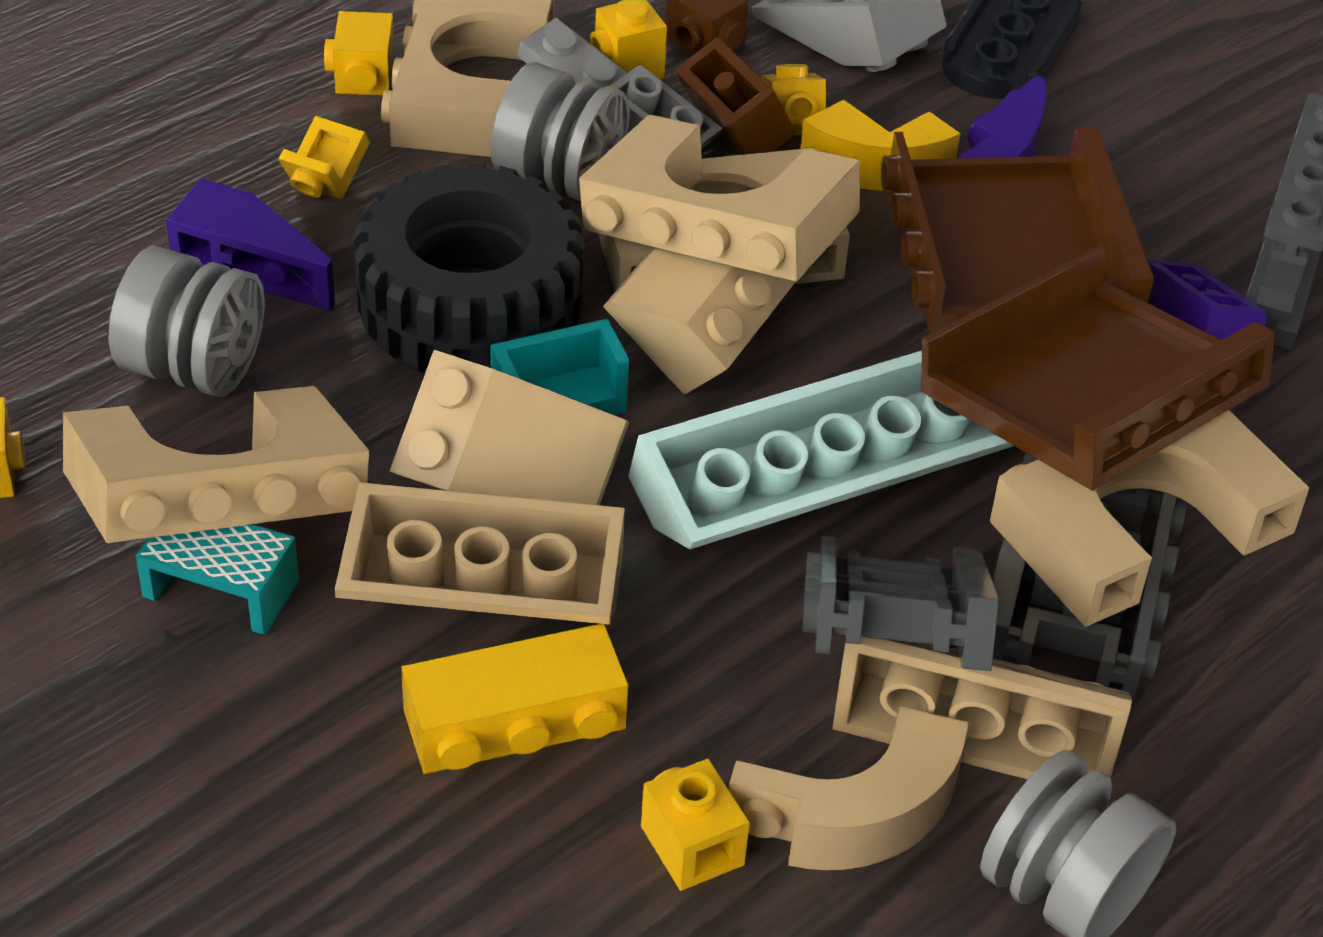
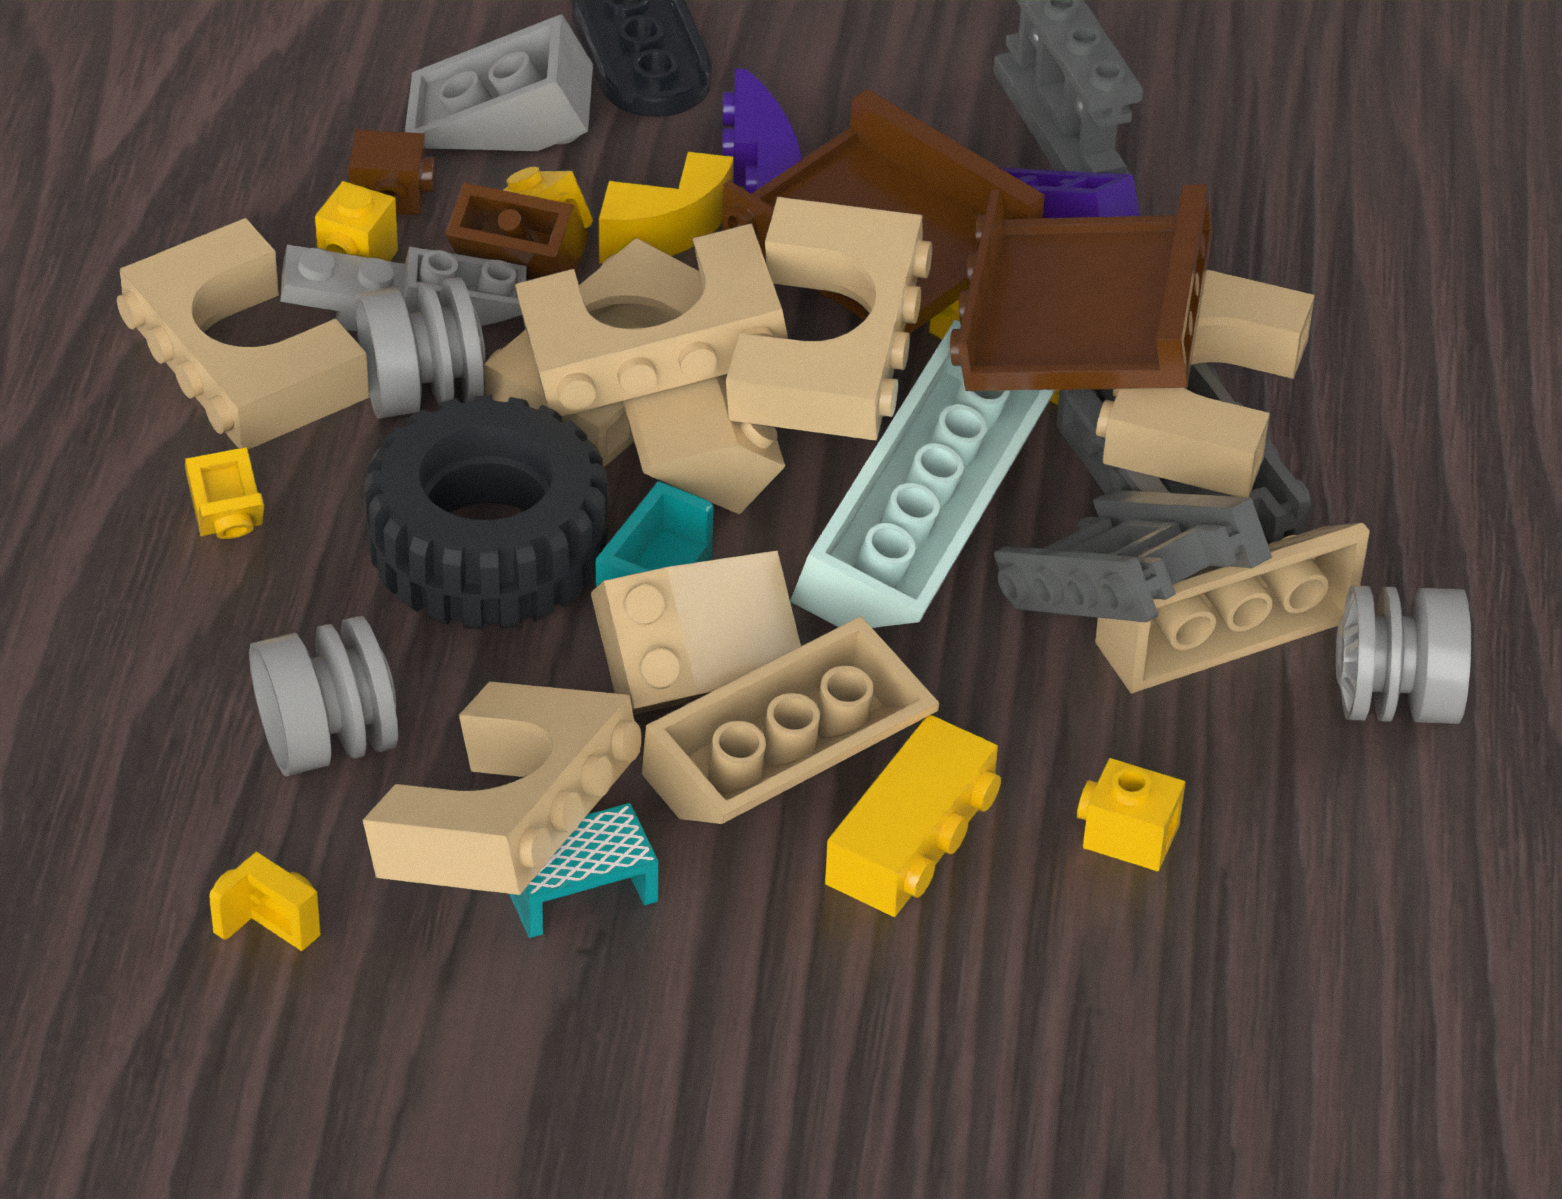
camera: 40 degrees left, 0 degrees up
(247, 235) = (244, 601): dark purple slope -> none
(361, 53) = (132, 379): yellow brick -> none
(811, 318) = (843, 381): none -> tan arch
(863, 815) = (1238, 686): tan arch -> none

